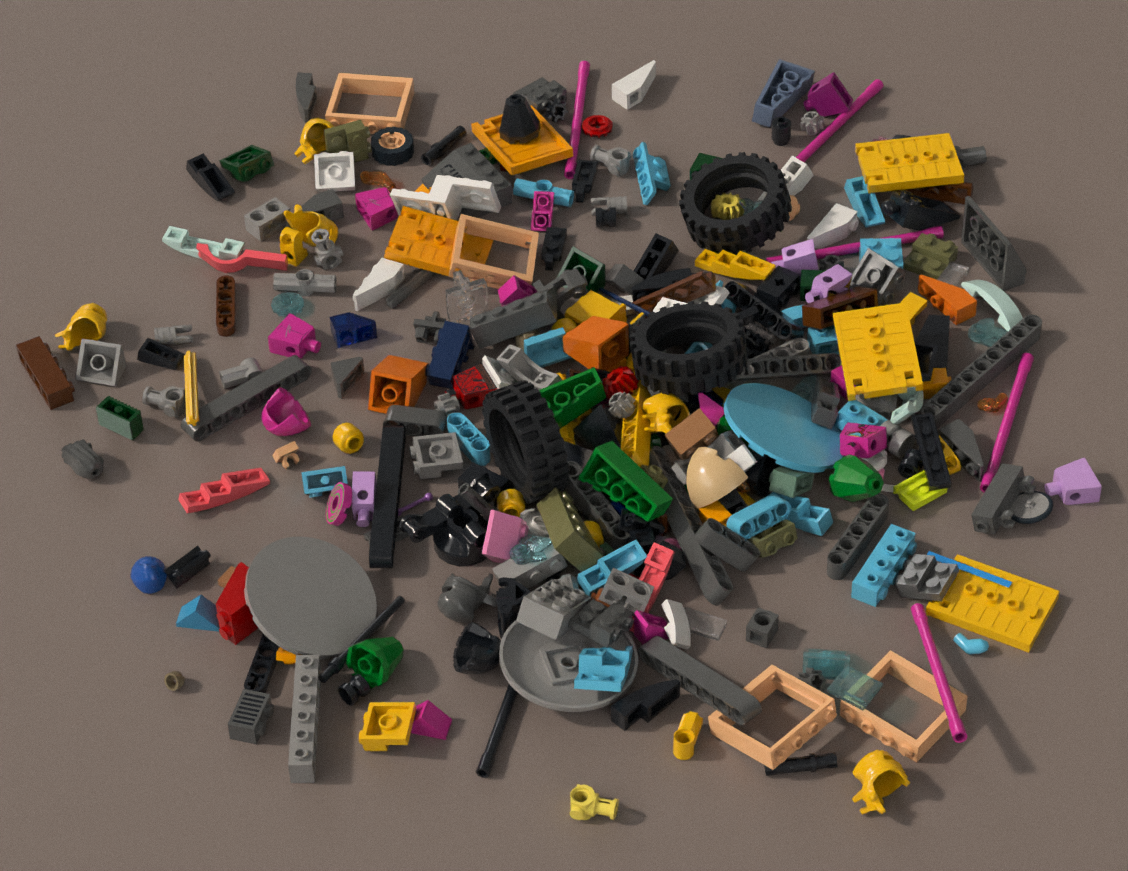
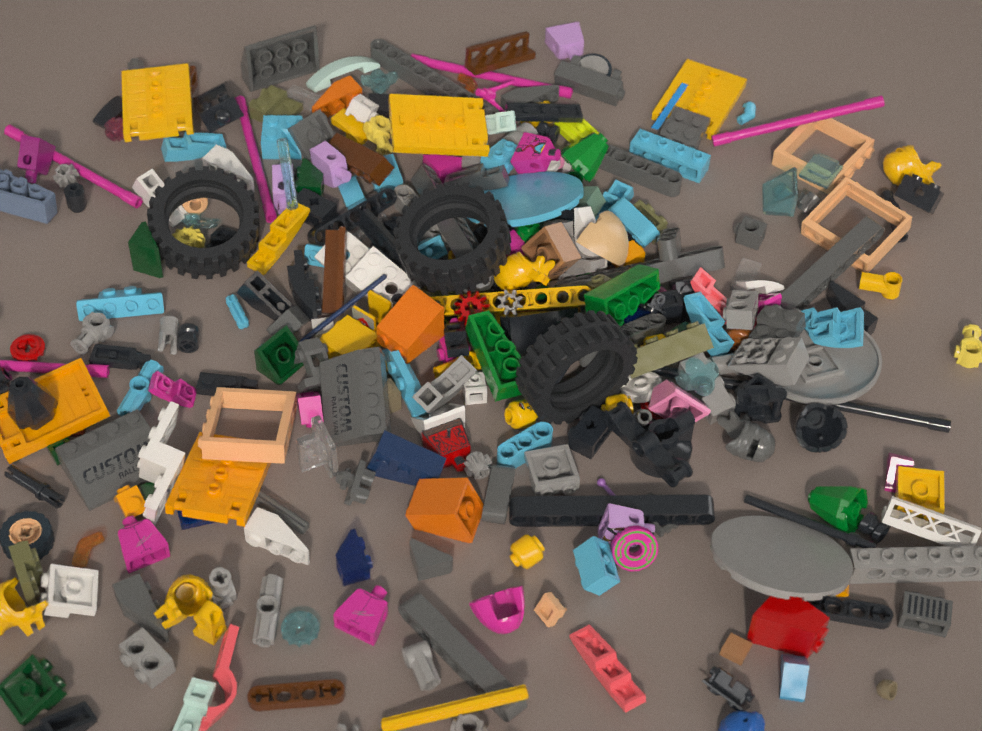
camera: 95 degrees left, 5 degrees up
(344, 726) = (927, 529): none -> white fence
(638, 249) = (237, 311): none -> medium azure axle
(799, 248) = (287, 174): none -> clear light blue axle
(829, 784) = (909, 187): none -> black brick
(920, 309) = (362, 108): none -> white brick
(949, 401) = (490, 94): none -> dark pink plant
(1032, 423) = (499, 59): none -> reddish brown fence

